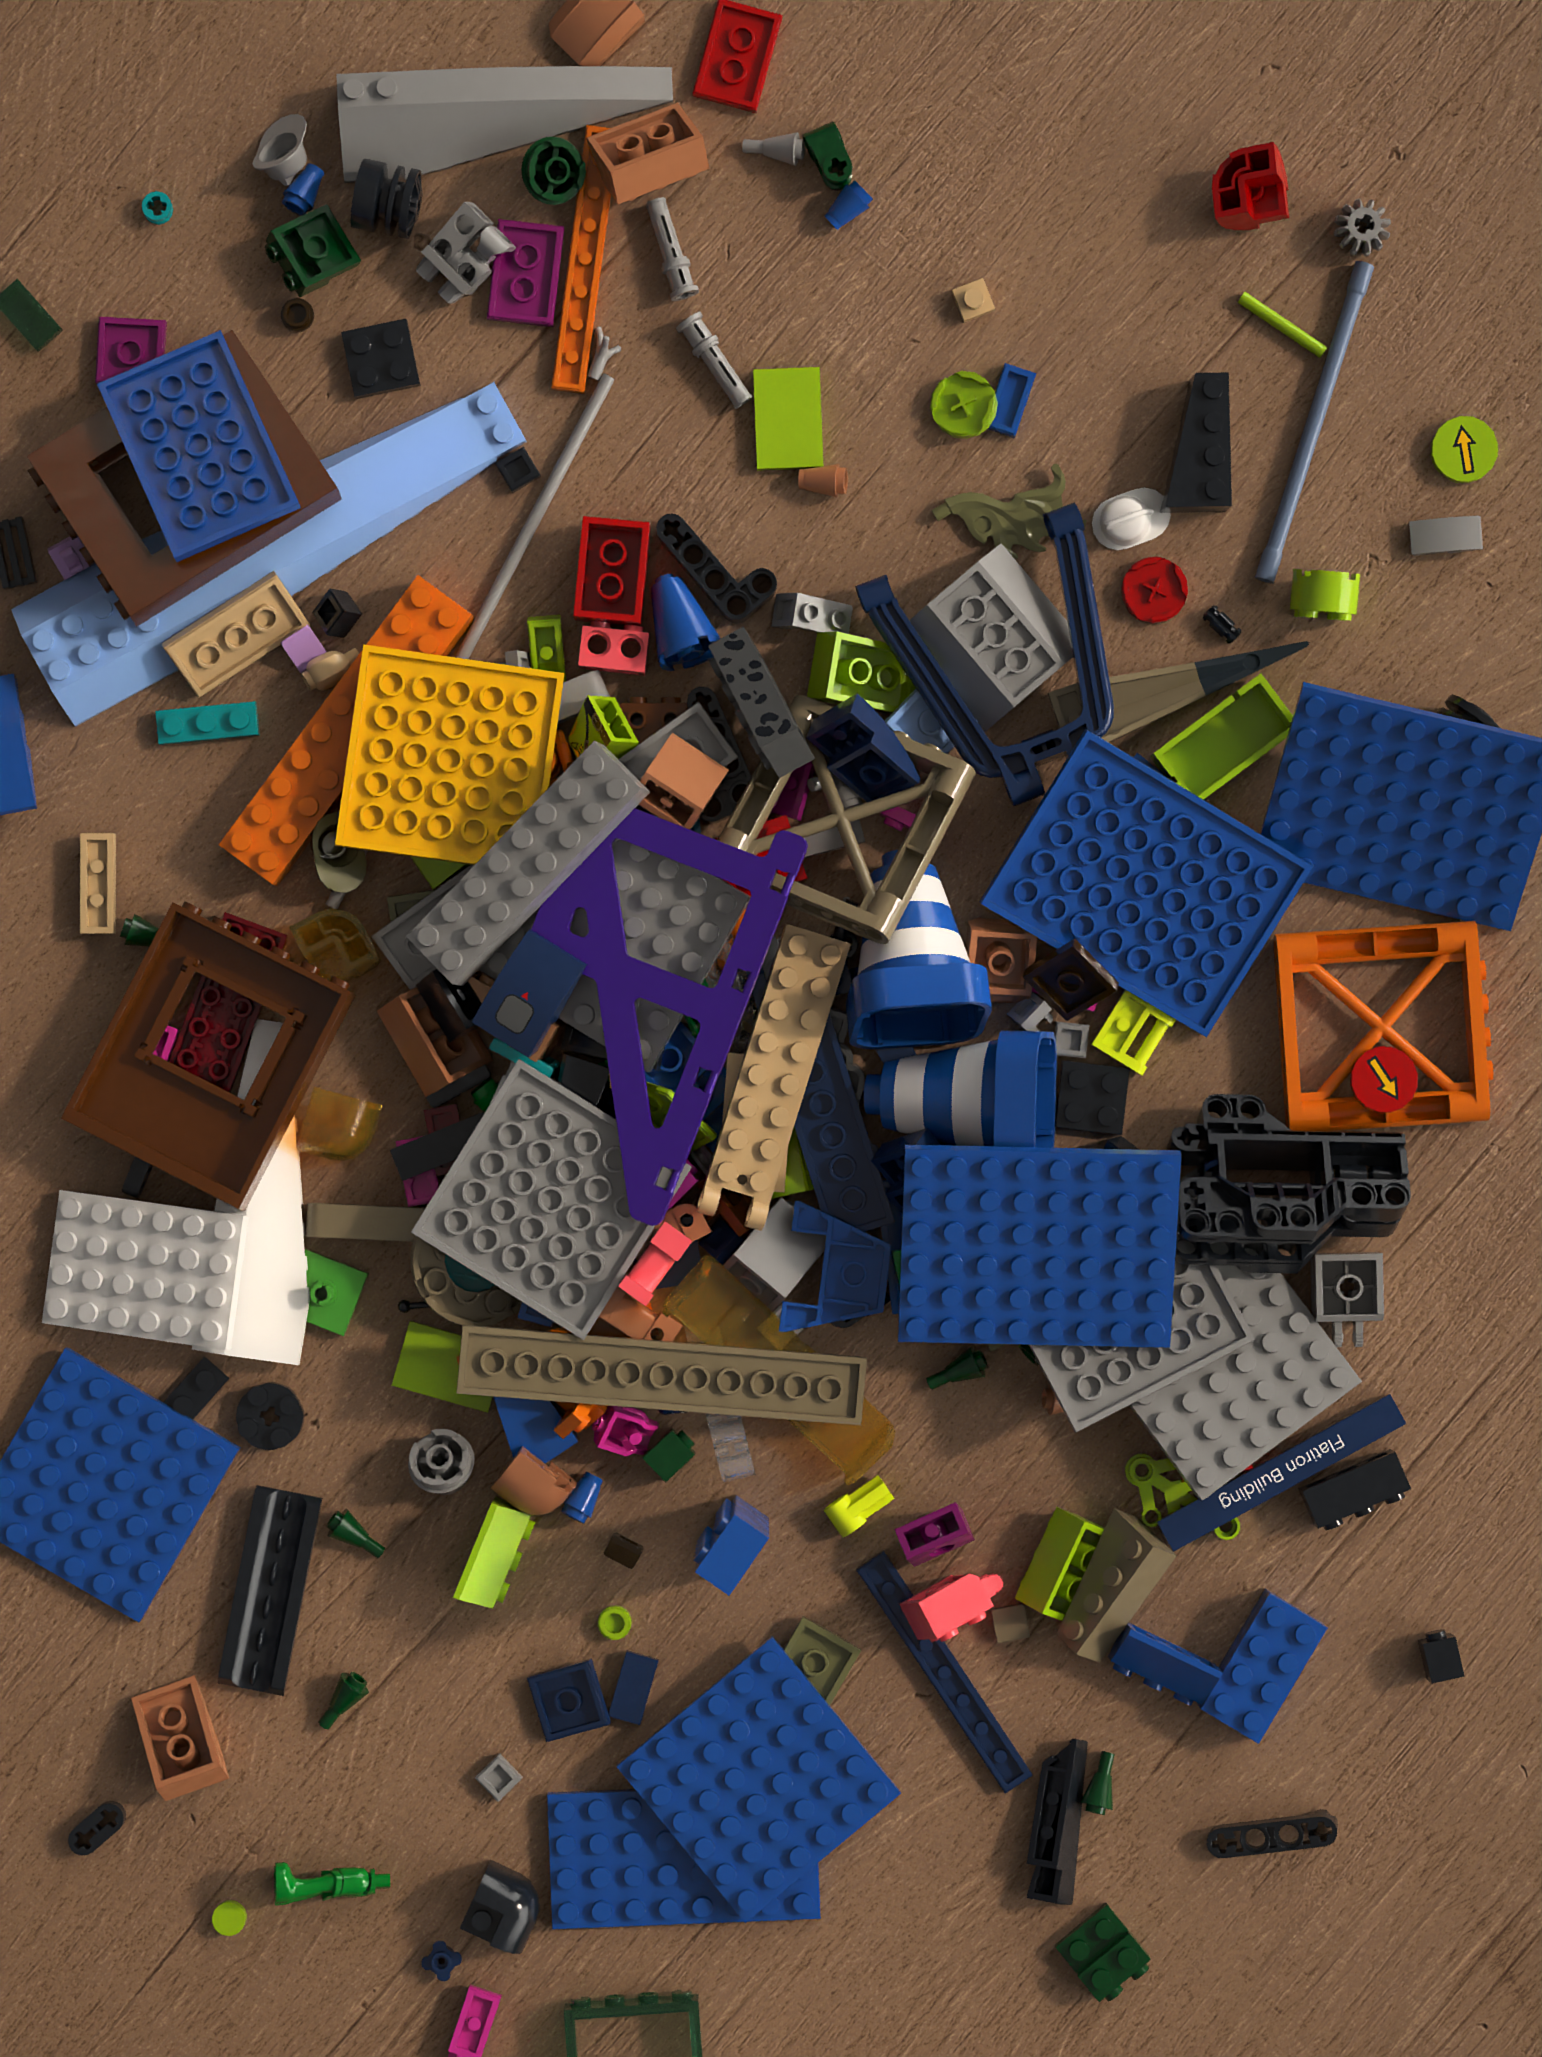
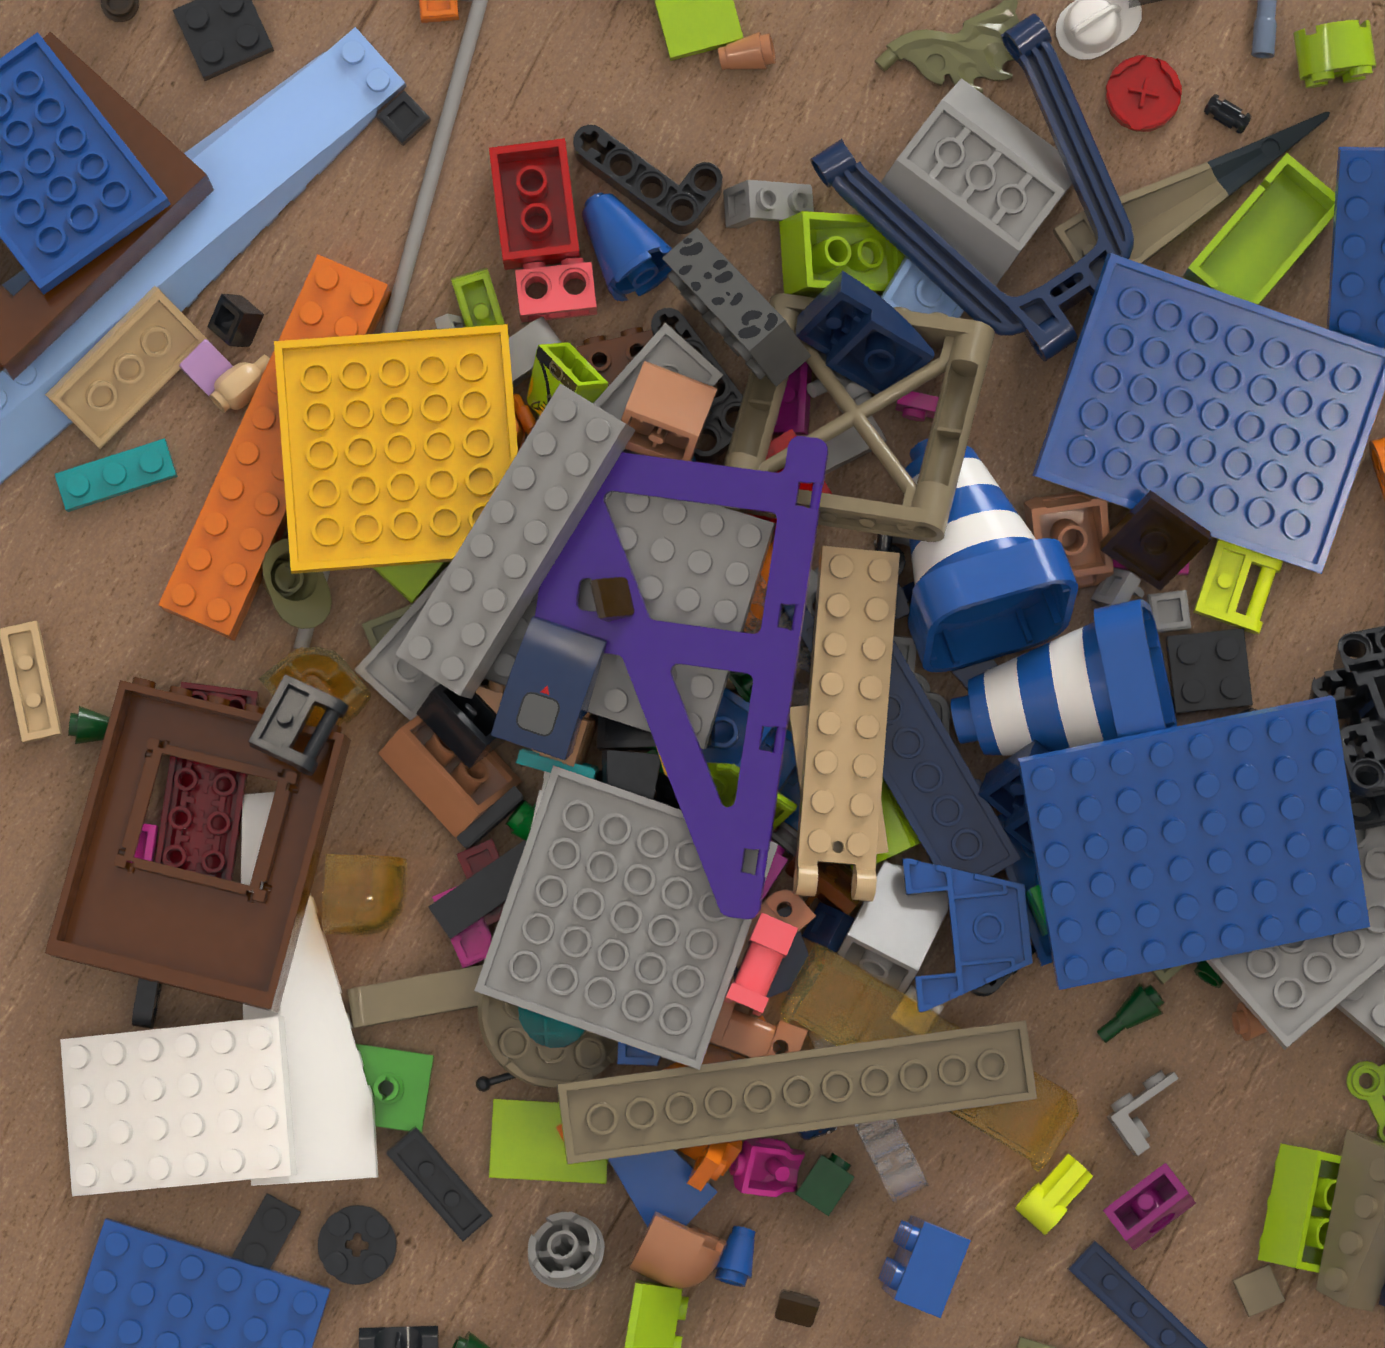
camera: 10 degrees left, 5 degrees down
(305, 967) = (286, 718): none -> plate
(348, 1381) = (439, 1183): none -> black tile
(598, 931) = (612, 598): none -> dark brown slope
(937, 1468) = (1133, 1131): none -> light grey bracket
(950, 1604) = (1186, 1283): coral hinge -> none

